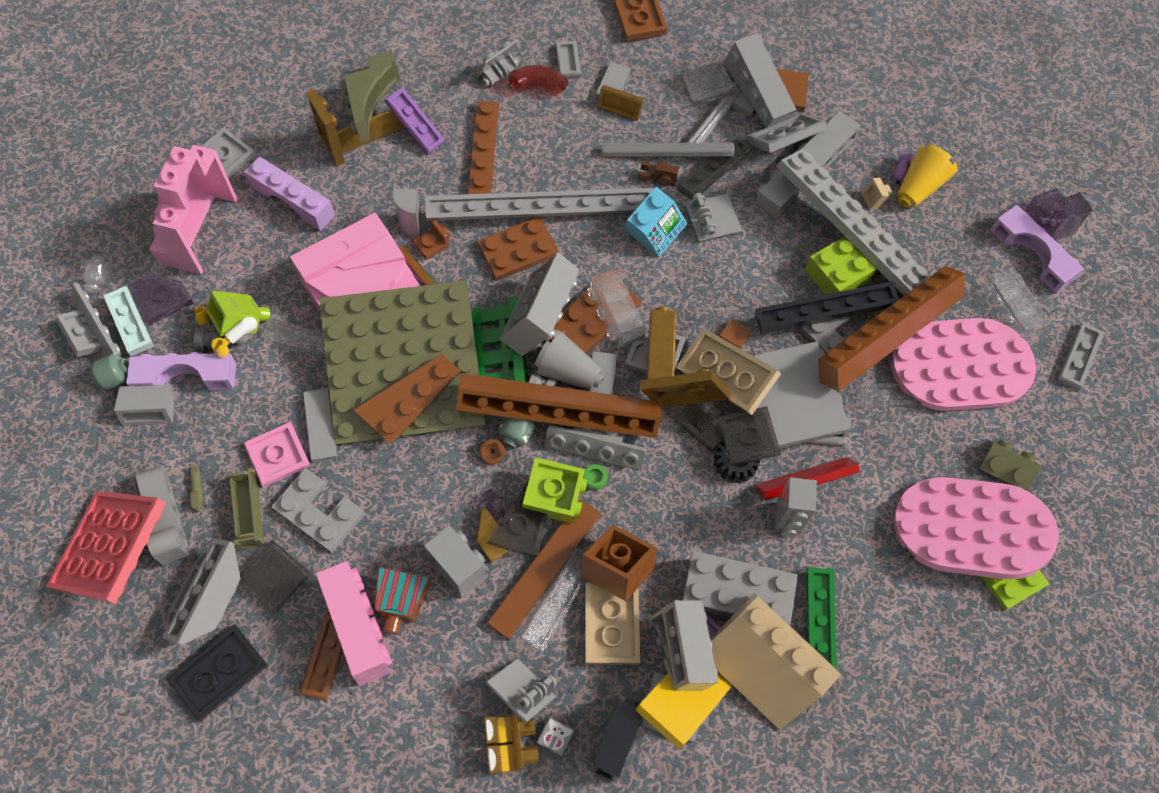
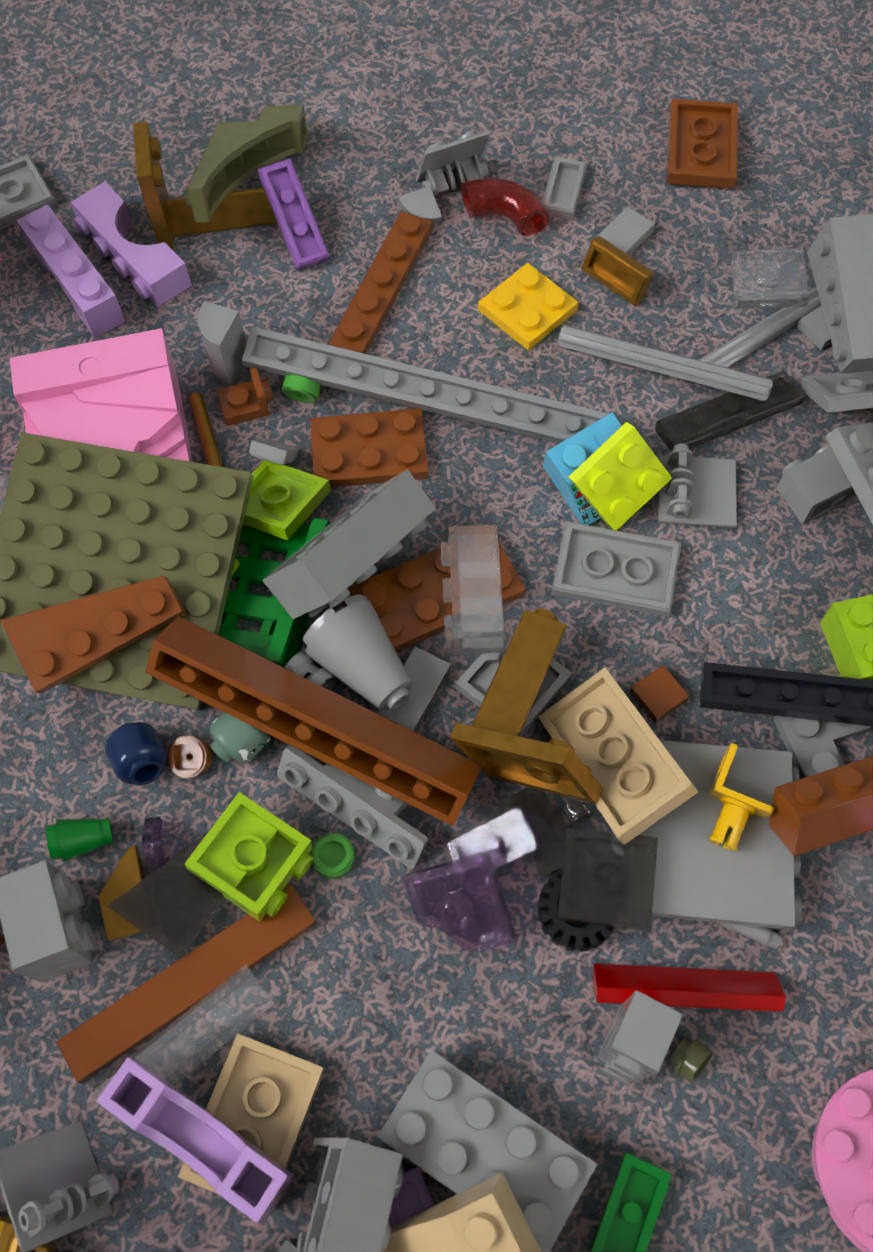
camera: 25 degrees right, 0 degrees up
(341, 178) = (153, 269): none -> lavender arch
(448, 514) = (77, 836): none -> green cone
(462, 459) = (136, 753): none -> dark blue head
(464, 225) = (301, 388): none -> bright green tile
(464, 266) = (273, 451): none -> light grey tile
(485, 291) = (283, 498): none -> lime plate
(487, 93) = (421, 204): none -> light grey tile
(575, 138) = (528, 306): none -> yellow plate
(611, 641) = (196, 1137): none -> lavender arch
(618, 562) = (298, 1023): dark orange brick -> none
(662, 173) = (640, 396): reddish brown plate -> none
(672, 221) = (620, 476): none -> neon yellow plate
(675, 475) = (462, 902): none -> clear purple plate
(681, 440) = (504, 837): none -> plate
(686, 274) = (617, 569): none -> light grey tile
(800, 375) = (735, 806): none -> yellow bracket
(822, 513) = (690, 1059): none -> olive plate

